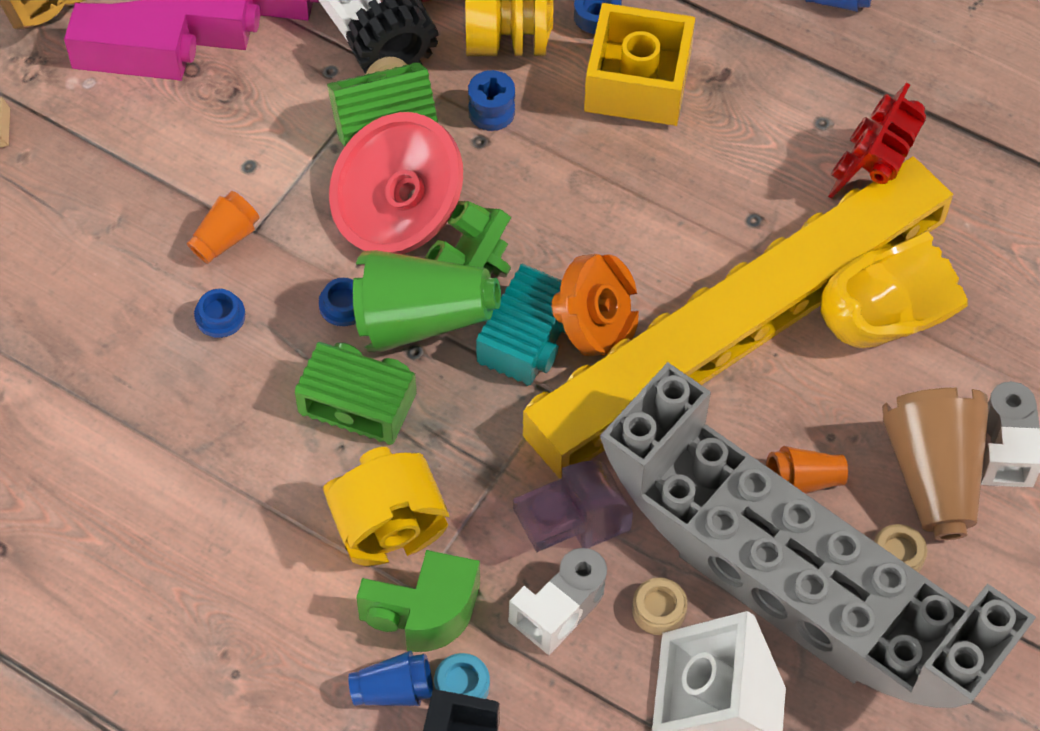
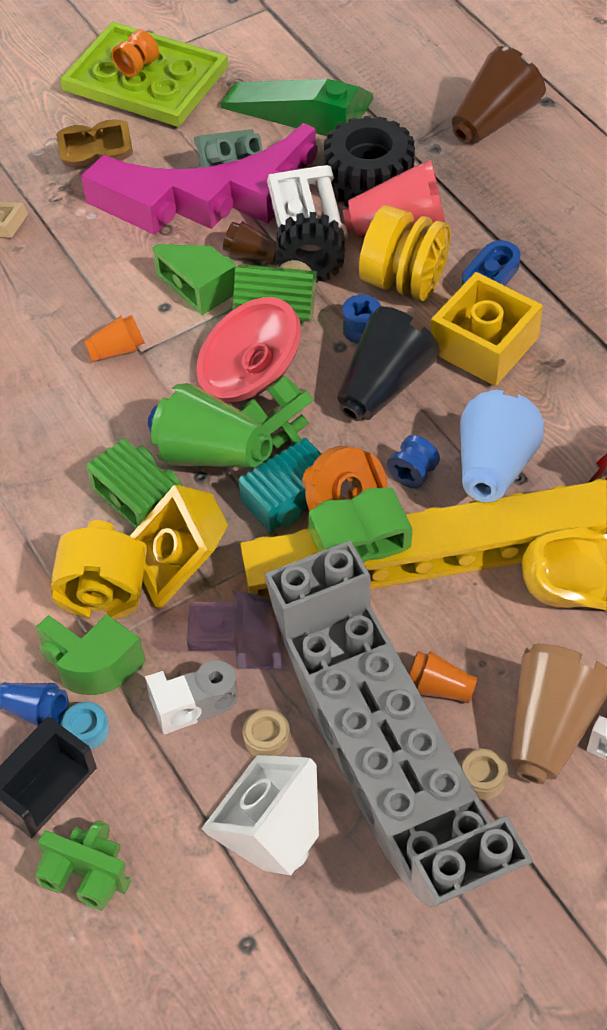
camera: 30 degrees right, 5 degrees down
(219, 313) = (77, 396): blue plate -> none
(271, 113) = (196, 274): none -> bright green slope
(310, 53) = (248, 243): none -> reddish brown cone
(455, 431) = (178, 539): none -> yellow slope
(554, 143) = (385, 362): none -> black cone
(645, 245) = (413, 461): none -> blue wheel
(656, 332) = (370, 521): none -> bright green brick
(731, 192) = (497, 442): none -> light blue cone

